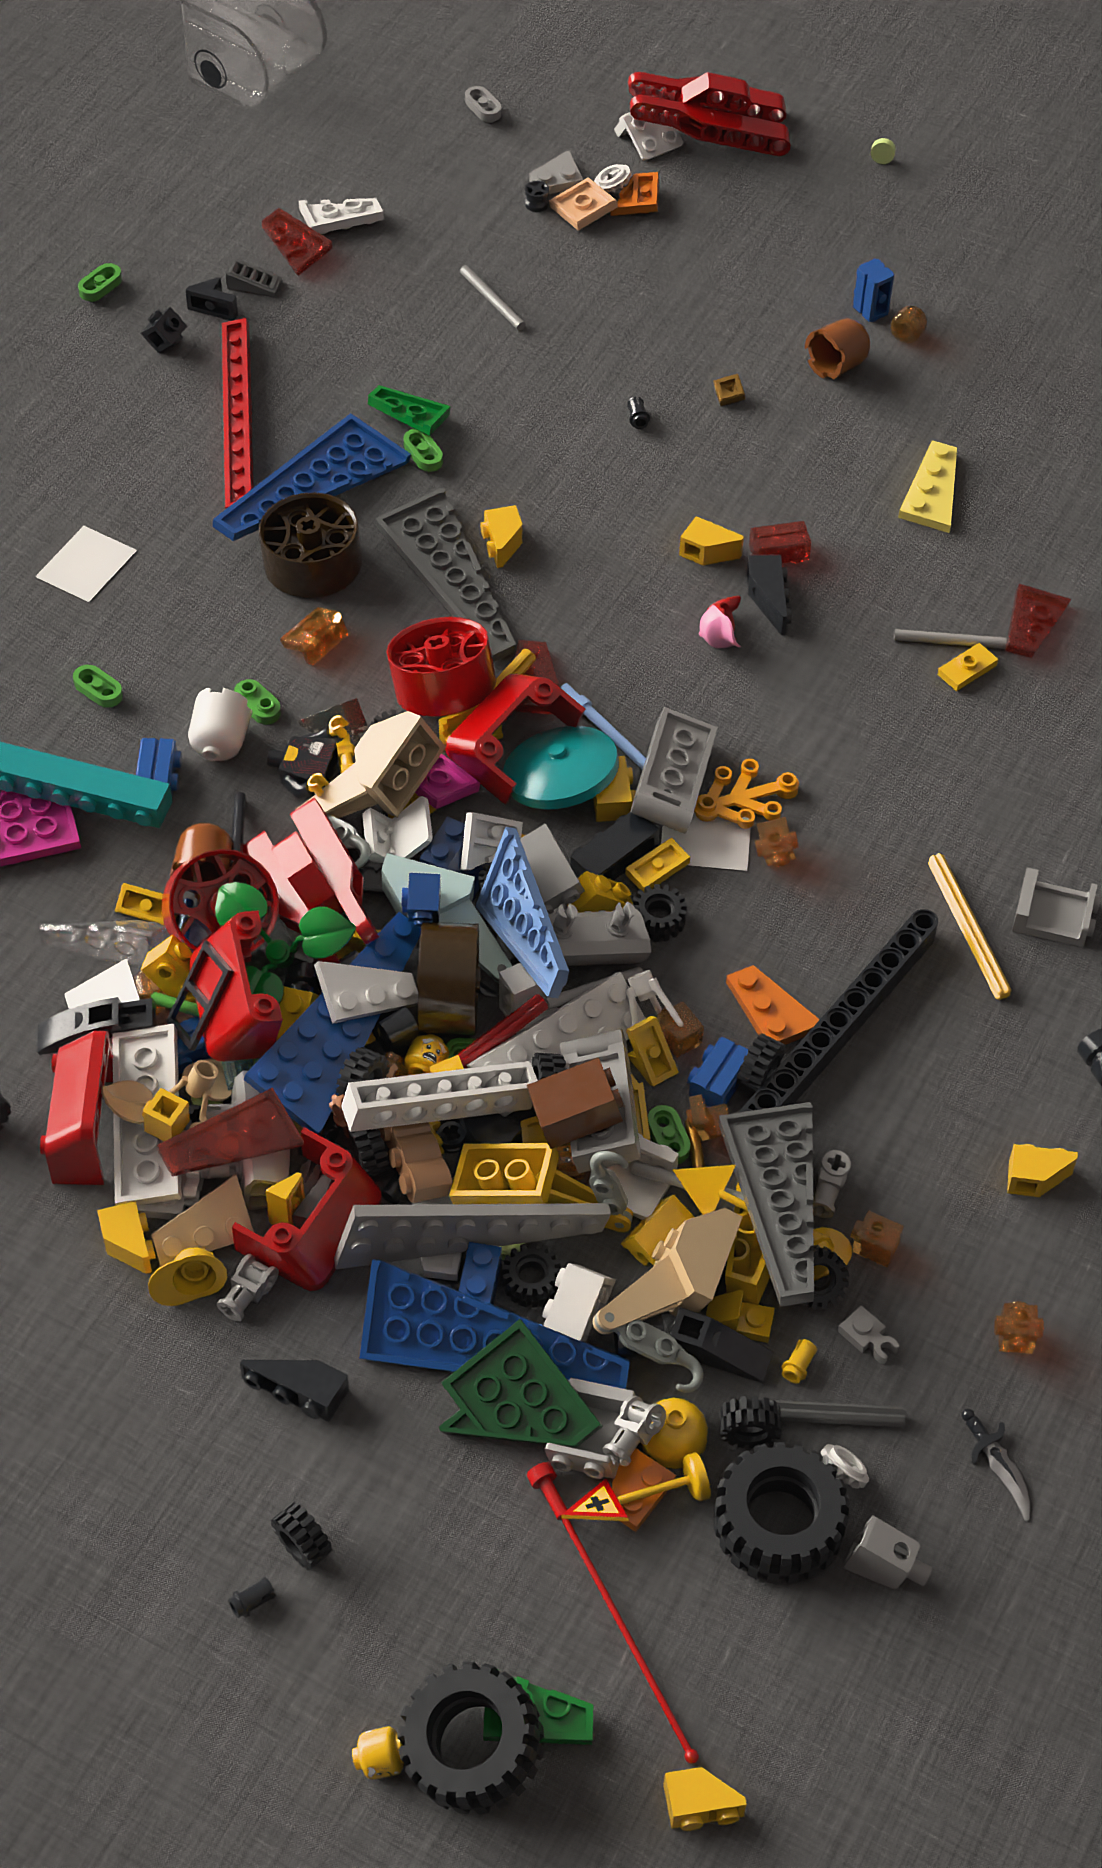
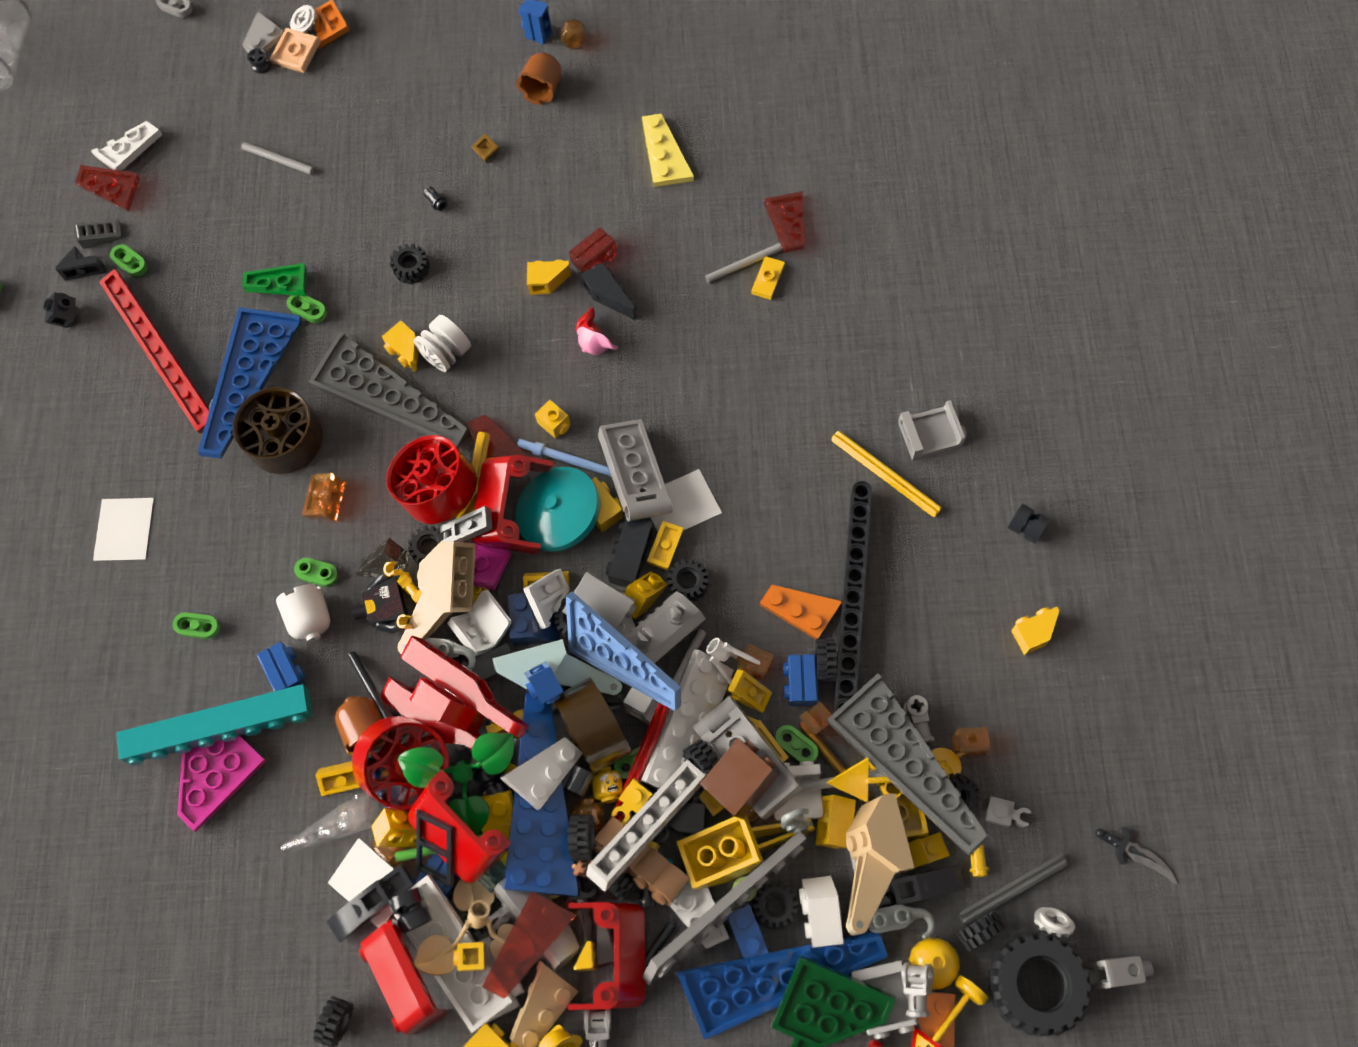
camera: 25 degrees left, 15 degrees up
(133, 1041) = (410, 910): none -> black wheel
(266, 319) = (130, 261): none -> bright green plate
(455, 723) = (467, 526): none -> plate
(547, 547) = (444, 341): none -> white wheel
(565, 471) = (407, 254): none -> black tyre
(617, 682) = (553, 419): none -> yellow brick
(711, 806) = (687, 460): light orange plant -> none
(776, 842) = (725, 480): clear orange brick -> none
(1018, 1327) = (1090, 759): clear orange brick -> none

